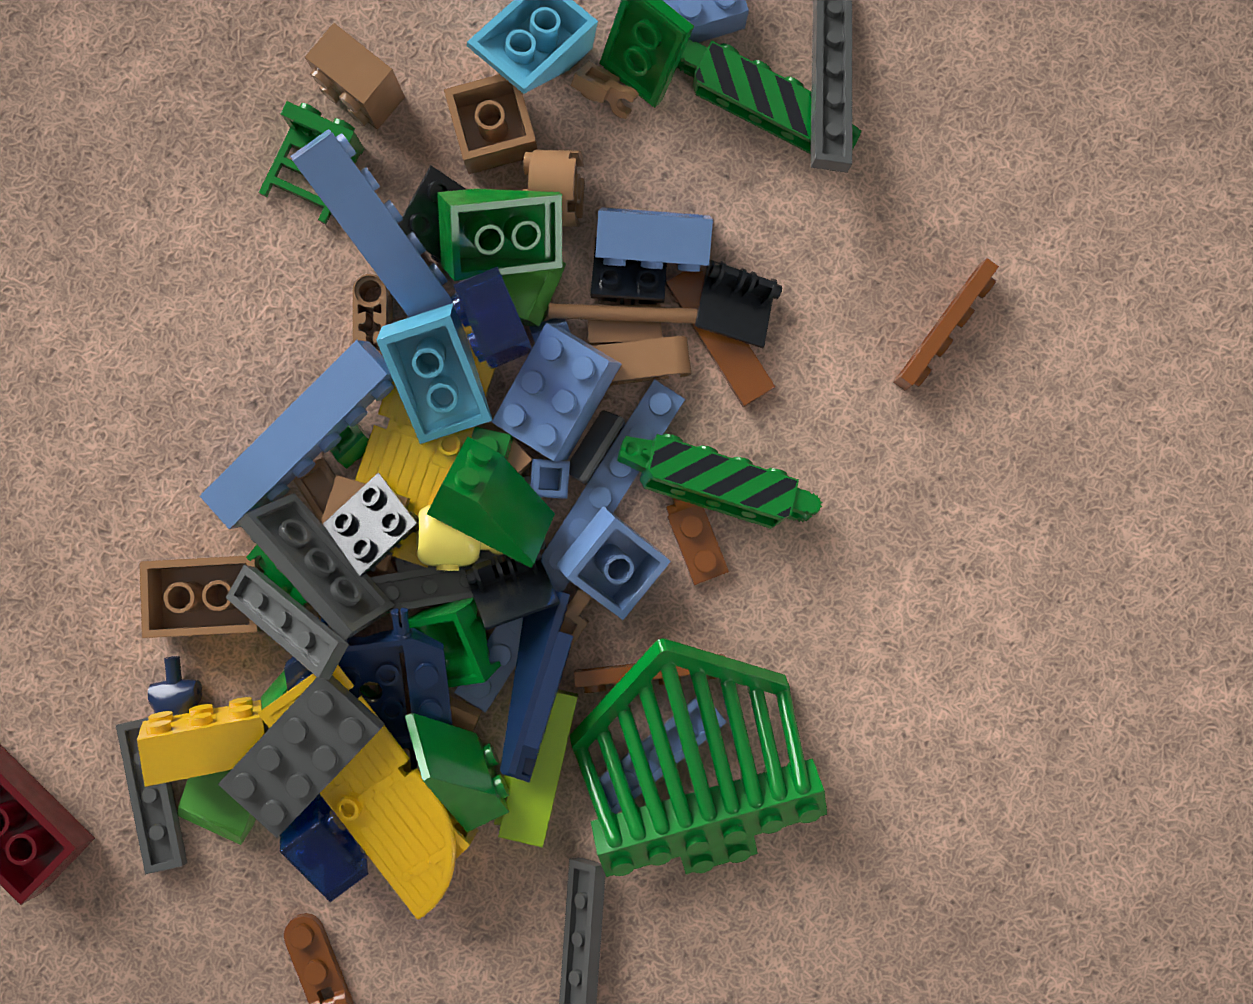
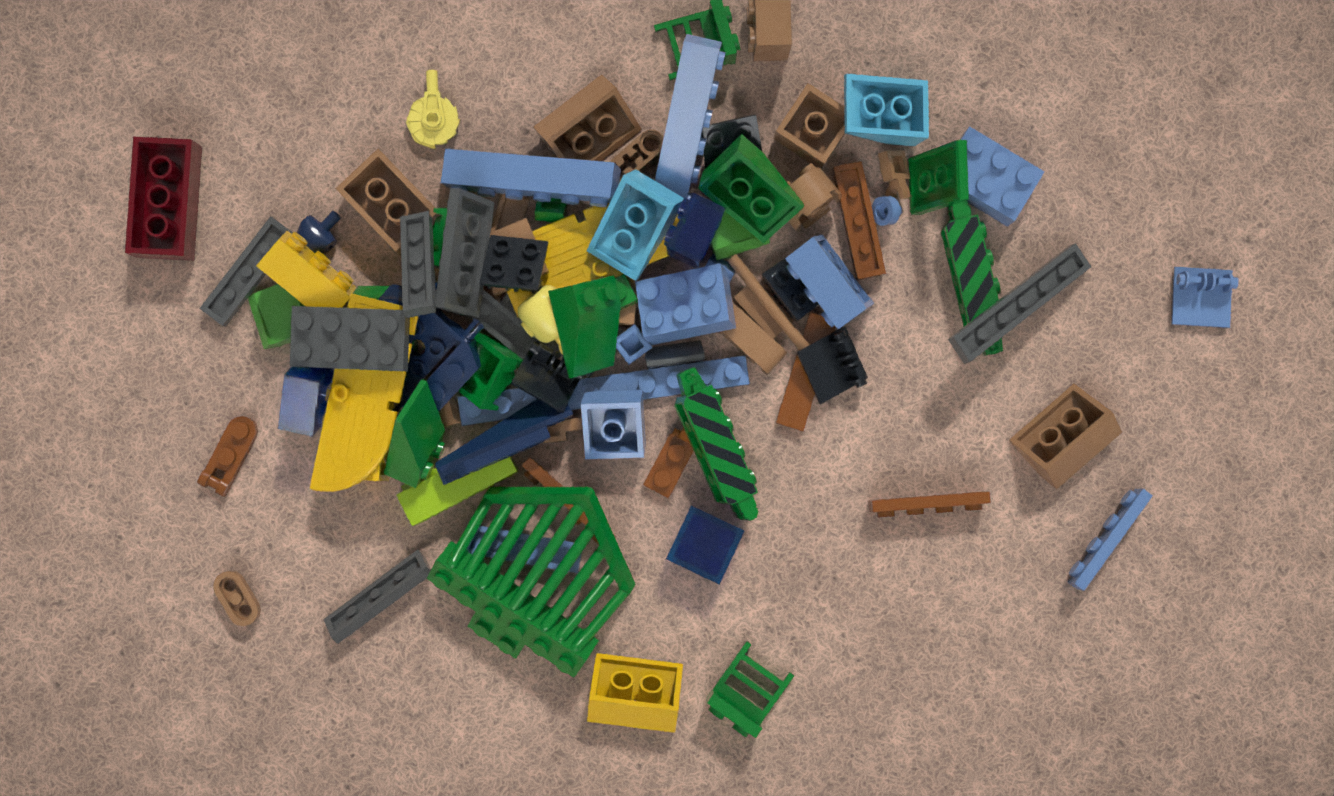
camera: 50 degrees right, 0 degrees up
(159, 483) = (432, 118): none -> light yellow piece
(298, 334) = (589, 123): none -> medium nougat slope
(619, 160) = (859, 221): none -> dark orange plate
(631, 126) = (886, 210): none -> medium blue tile
(805, 574) = (705, 544): none -> clear blue brick
(890, 765) = (635, 692): none -> yellow slope
(988, 679) = (729, 703): none -> green plate
(992, 141) = (1066, 435): none -> medium nougat slope
(1128, 196) = (1115, 528): none -> medium blue plate

